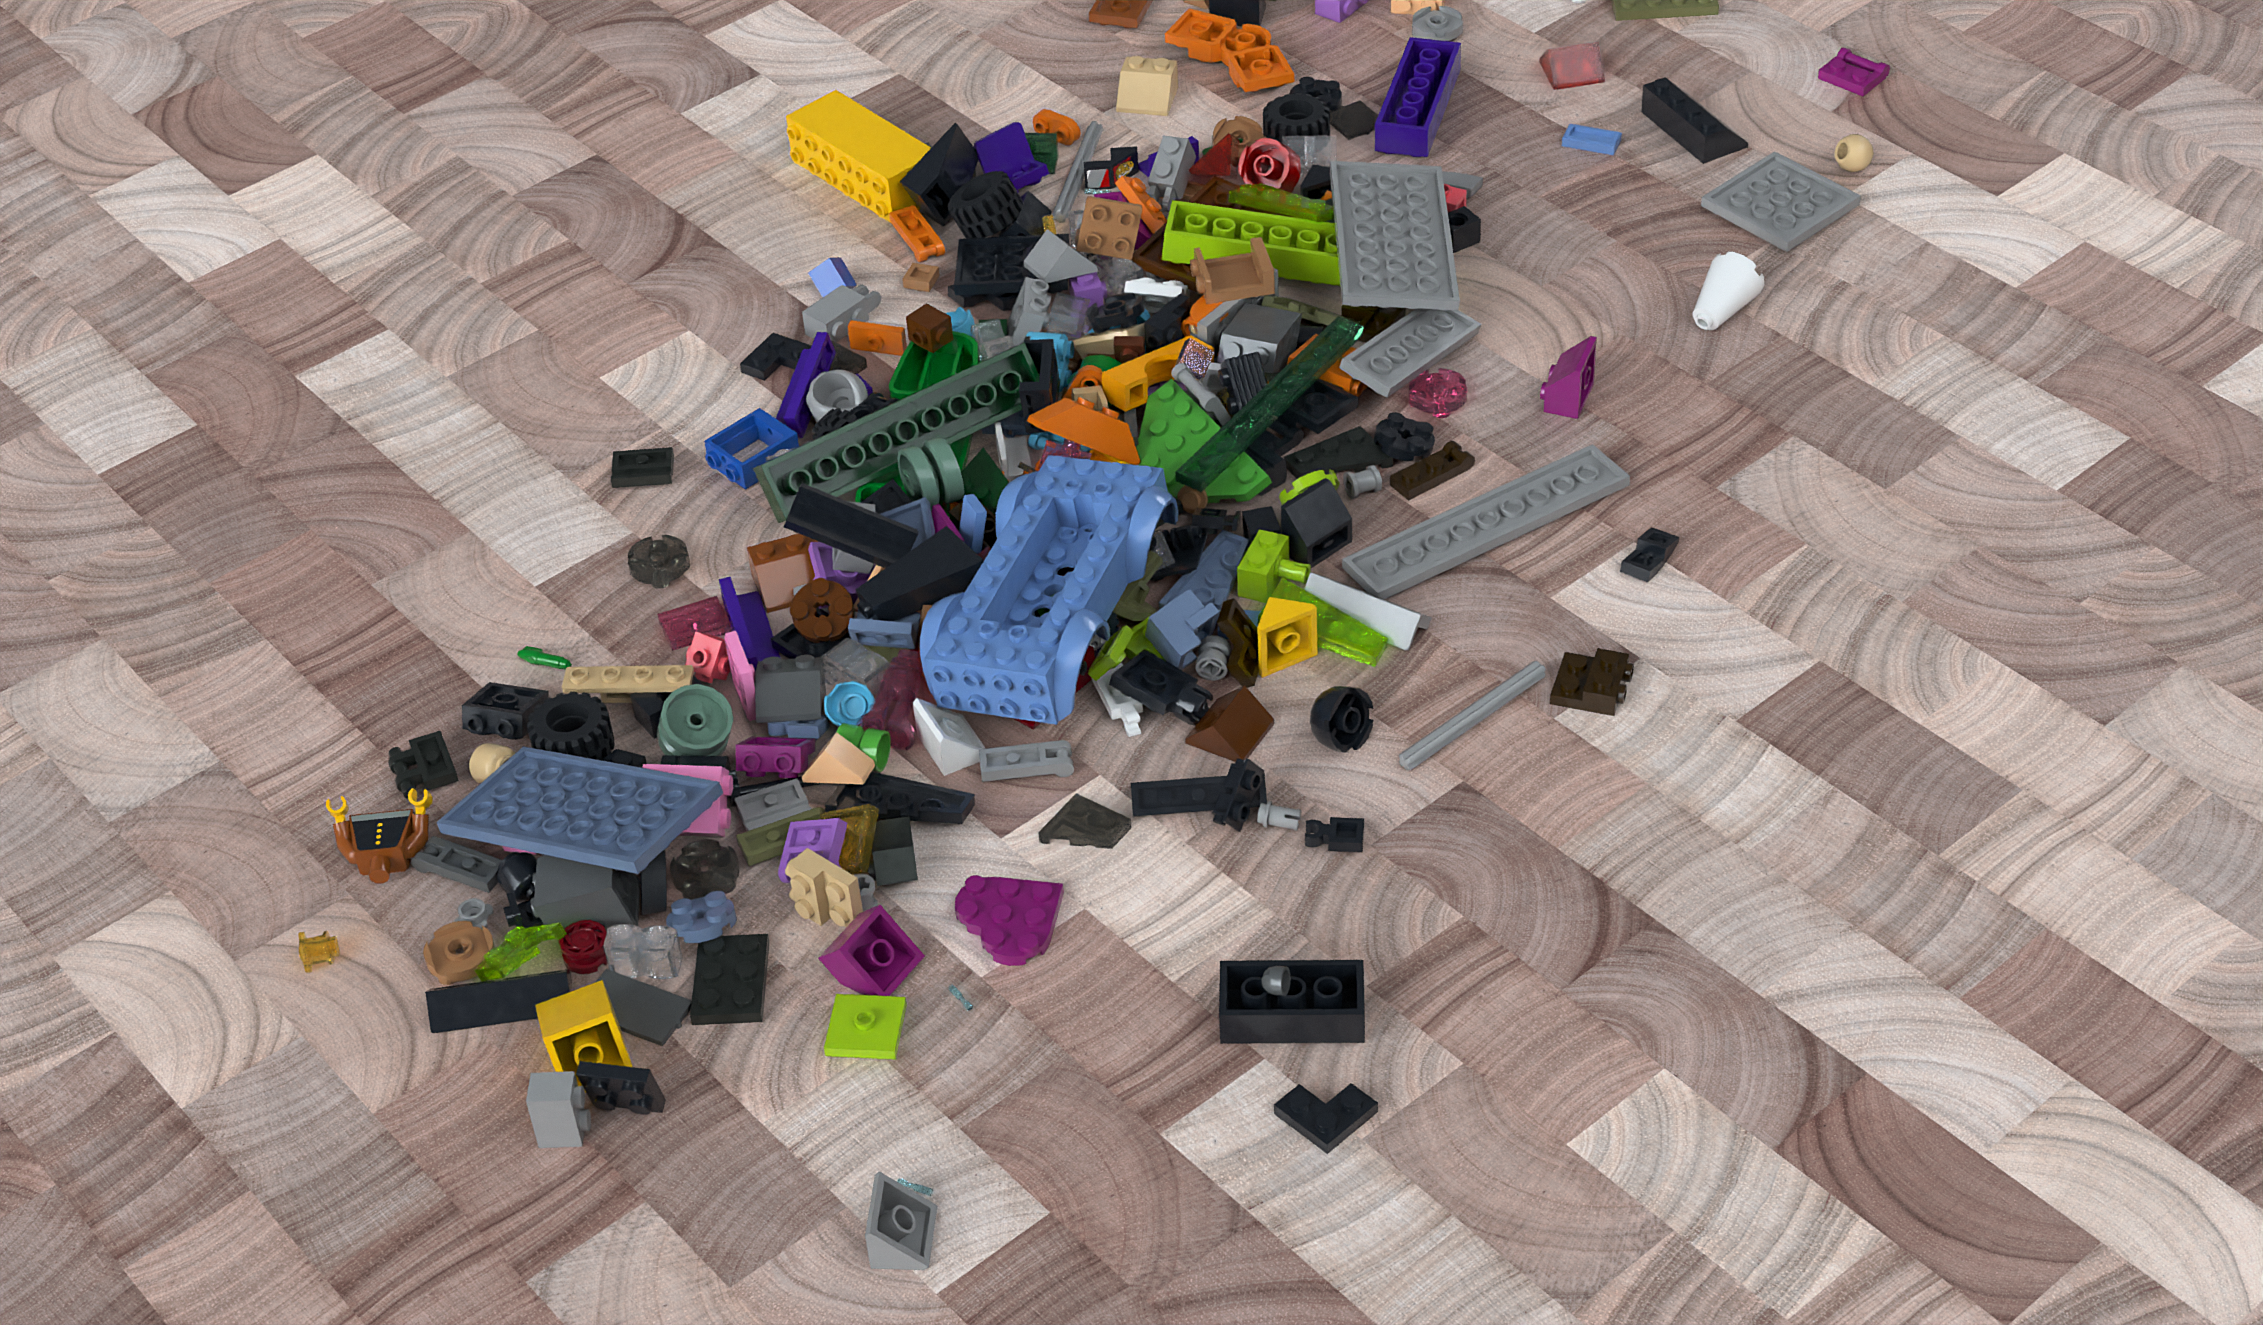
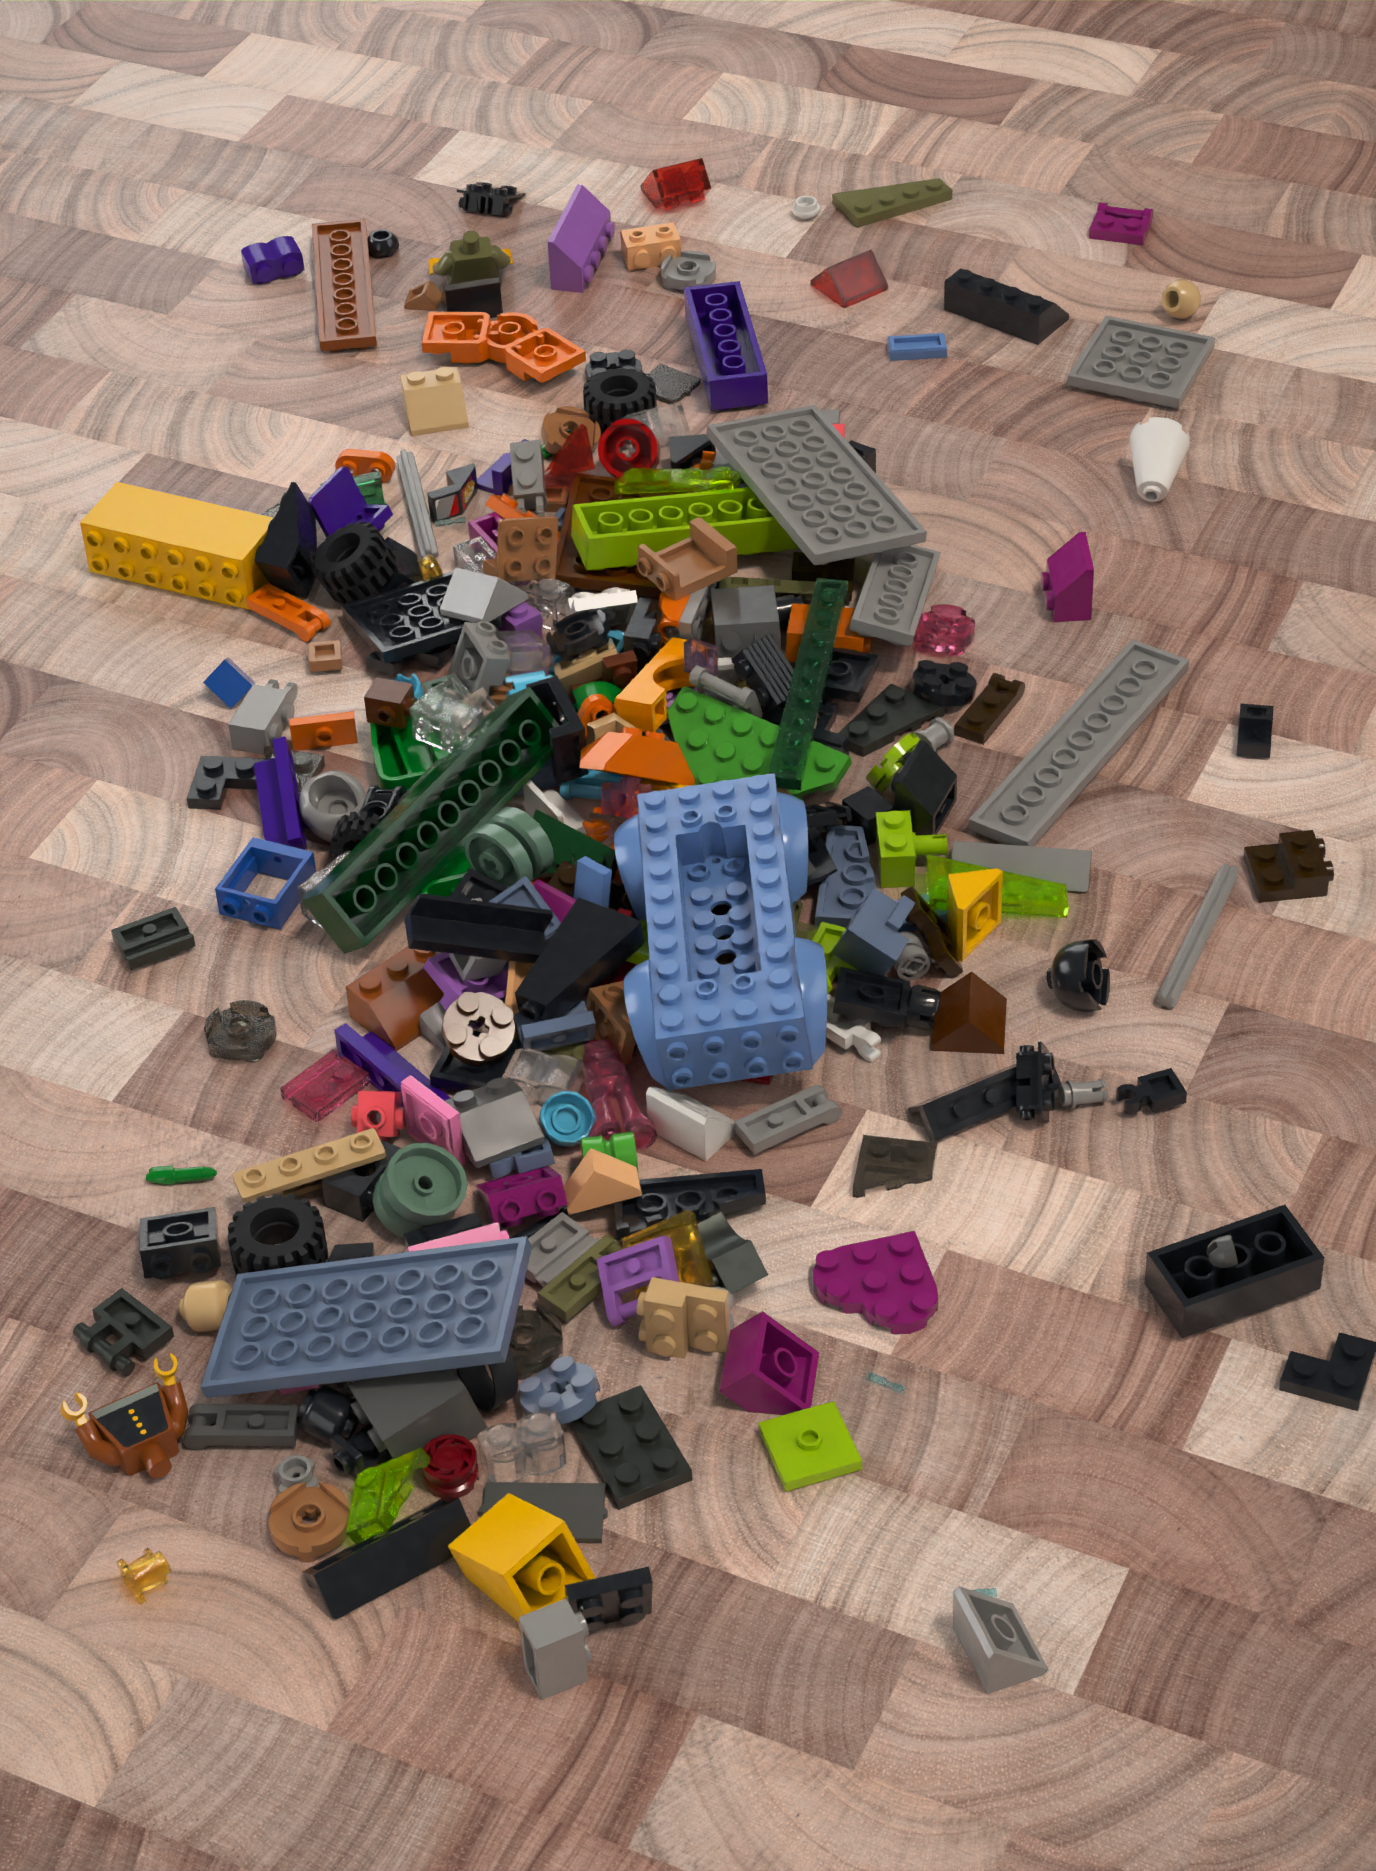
camera: 25 degrees left, 0 degrees up
(956, 350) = (443, 720): none -> clear brick

